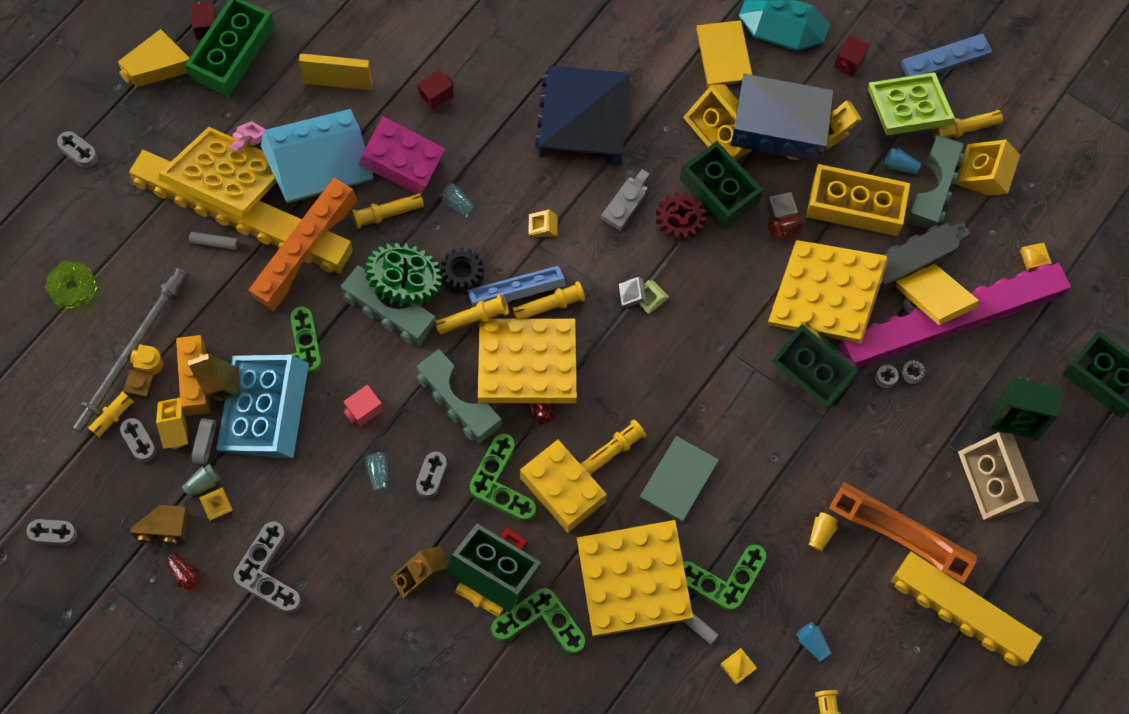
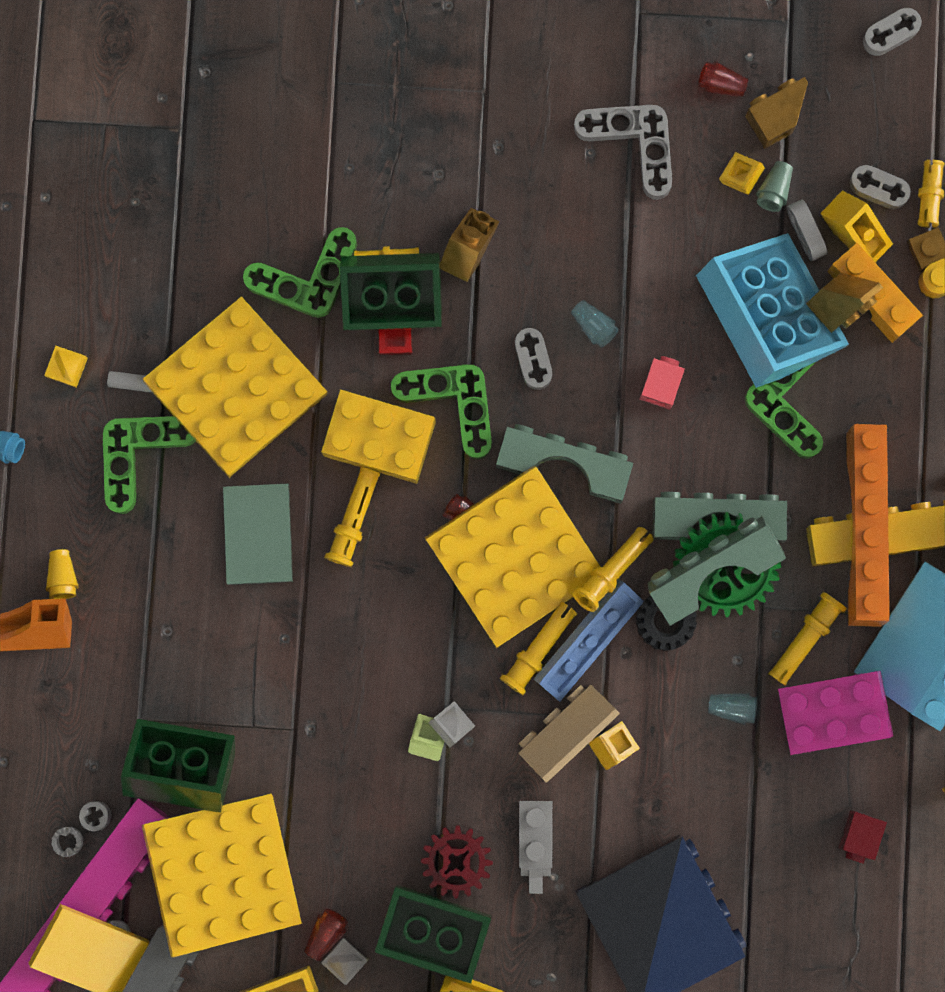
camera: 155 degrees right, 15 degrees up
(386, 264) = (748, 547): none -> sand green arch
(566, 240) = (567, 732): none -> tan slope

